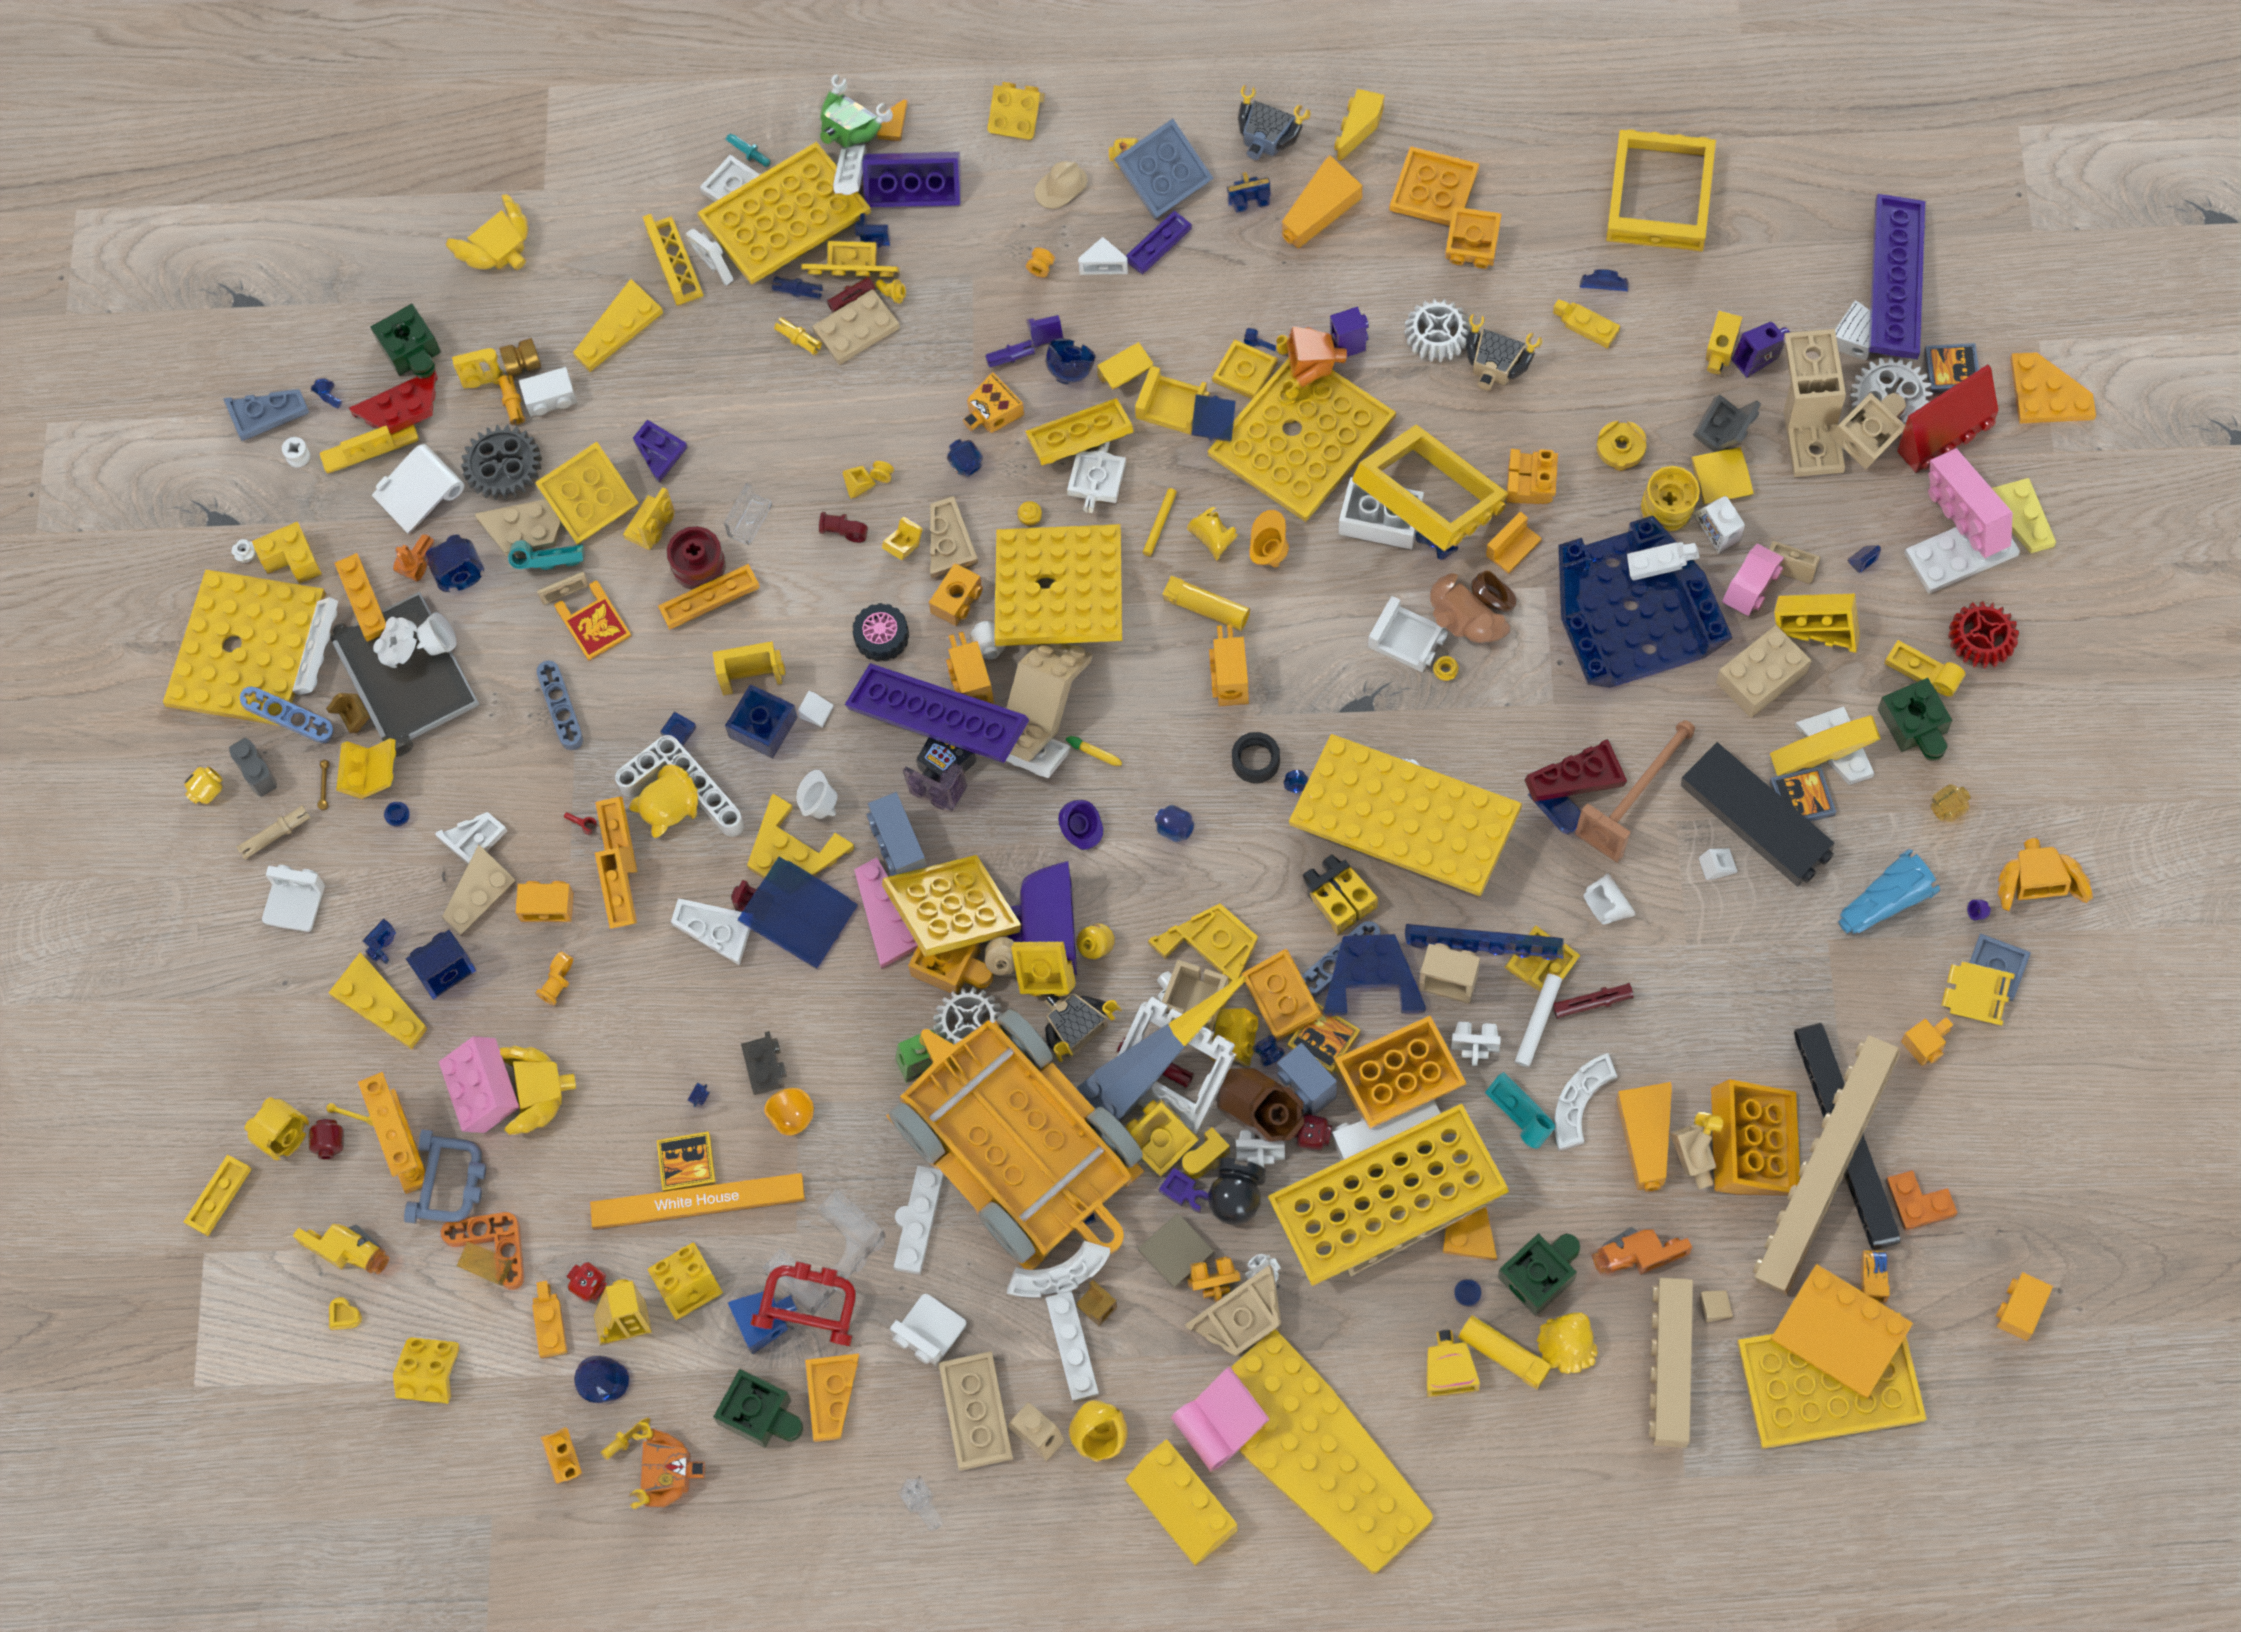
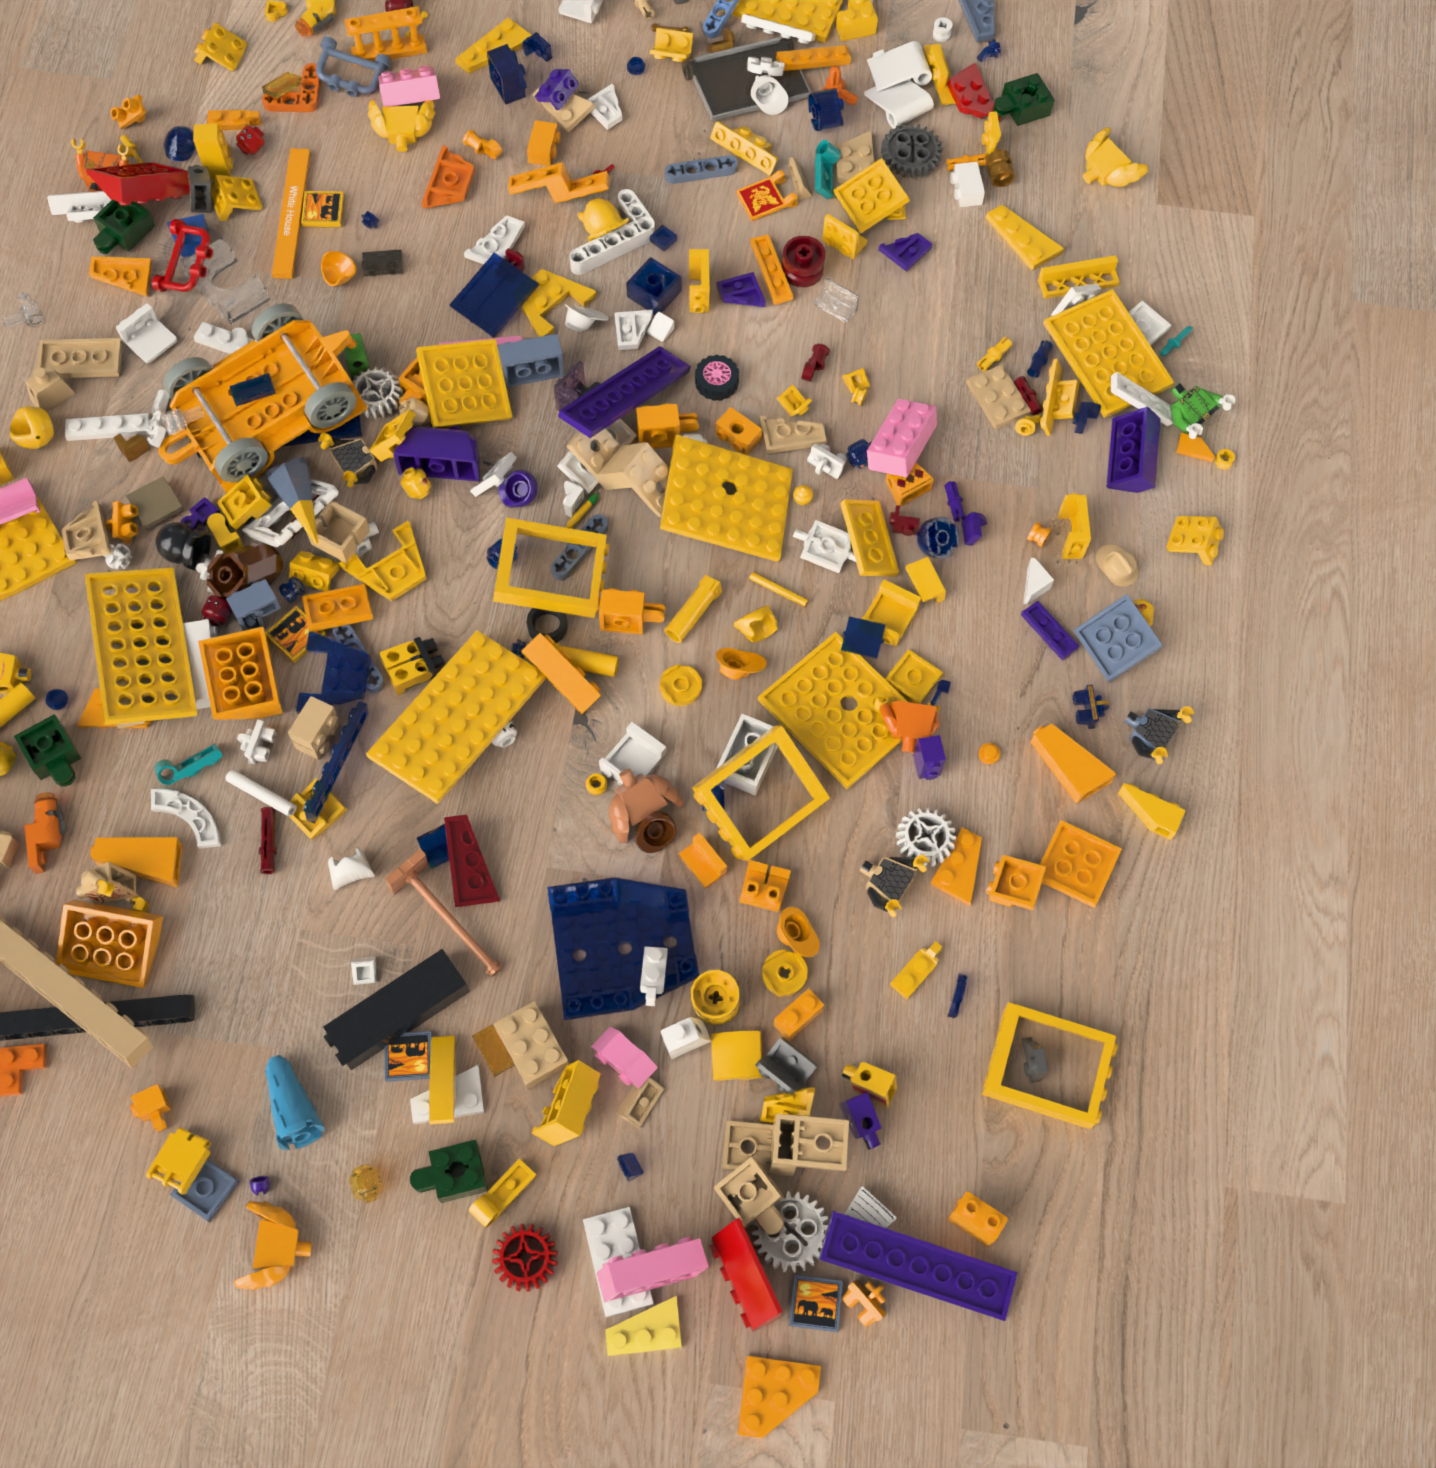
camera: 90 degrees right, 0 degrees up
(367, 492) = (900, 65): none -> white door
(461, 892) = (557, 88): none -> dark purple bracket
(516, 655) = (746, 145): none -> yellow bracket
(618, 1008) = (448, 180): none -> orange wing
(681, 1322) = (199, 181): none -> dark grey torso
(689, 1396) = (141, 182): none -> red slope
(729, 1470) = (78, 205): none -> white bracket
(746, 621) = (741, 290): none -> dark purple wing
(823, 743) = (631, 328): none -> white wing
(902, 83) = (1224, 464): none -> yellow bush
(944, 408) = (902, 437): none -> bright pink brick
(983, 493) = (826, 461): none -> white hips
(1012, 1145) = (252, 389): none -> tile
(1028, 219) = (1075, 508): none -> yellow panel
(1049, 409) = (903, 524): none -> dark red bracket
(1063, 847) = (495, 475): none -> white wing
(1074, 1226) = (176, 421): none -> clear axle
(1083, 758) = (573, 499): none -> white bracket
(1146, 741) = (571, 564): none -> sand blue beam
(1198, 799) = (544, 600): none -> yellow window
(1296, 710) = (591, 661): none -> yellow piece
(1303, 604) = (680, 685): none -> yellow tile
(1323, 283) = (989, 753): none -> light orange plate
(1325, 719) = (561, 673): none -> light orange brick
(1473, 296) = (958, 871): none -> light orange wing
(1577, 435) = (797, 932): none -> light orange piece
(1663, 199) = (1035, 1063): none -> dark grey wing
(1666, 421) = (798, 1015): none -> light orange brick
(1771, 415) = (789, 1104): none -> yellow wing
(1775, 713) = (493, 1050): none -> clear yellow tile
(1839, 228) = (977, 1219): none -> light orange panel
(1947, 315) = (859, 1293): none -> light orange hips

